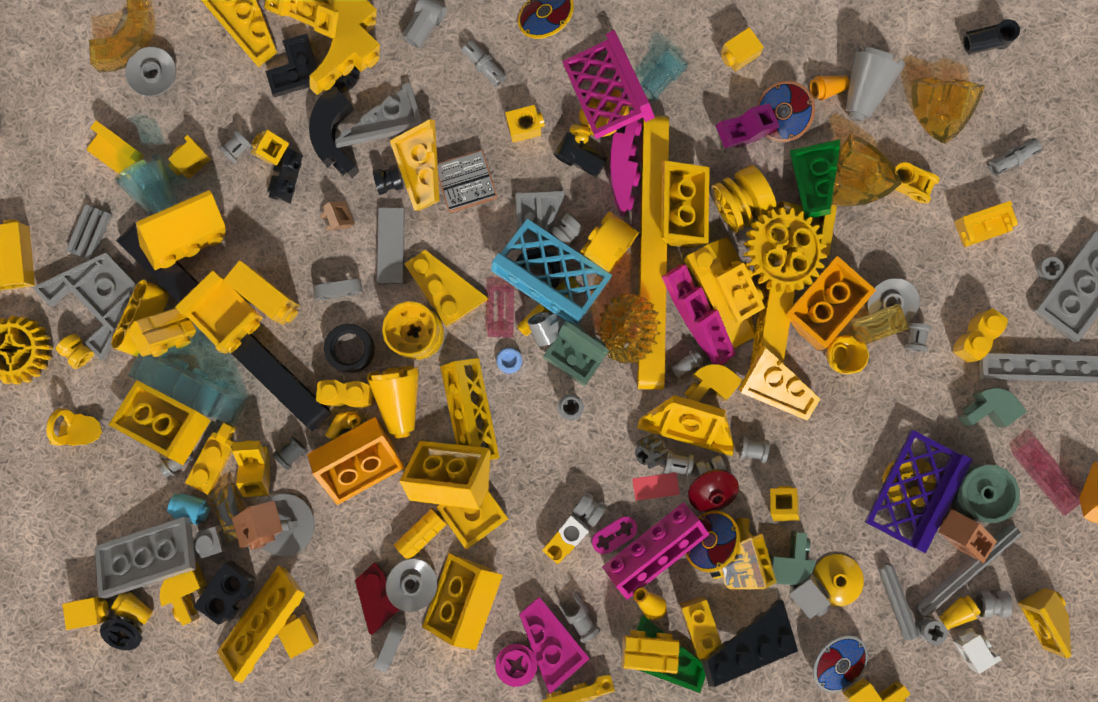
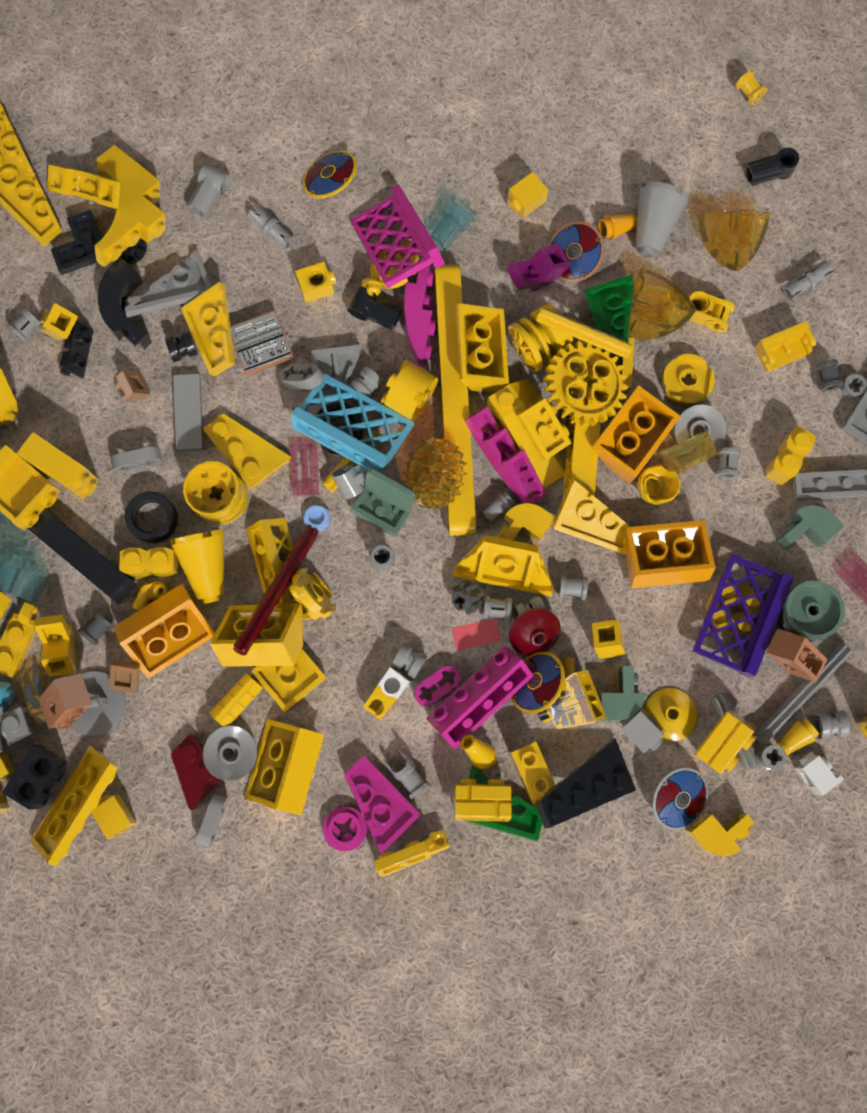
camera: 10 degrees left, 5 degrees down
(315, 503) = (124, 676): none -> medium nougat tile
(465, 433) = (275, 591): none -> dark red axle
(501, 437) = (313, 594): none -> yellow plate
(504, 219) = (302, 376): none -> light grey beam
(788, 200) = (583, 332): none -> yellow axle
(851, 425) = (668, 554): none -> light orange slope
(890, 614) = (726, 741): none -> yellow brick
(897, 242) = (700, 372): none -> yellow plate
(1026, 256) = (829, 375): none -> dark grey bush

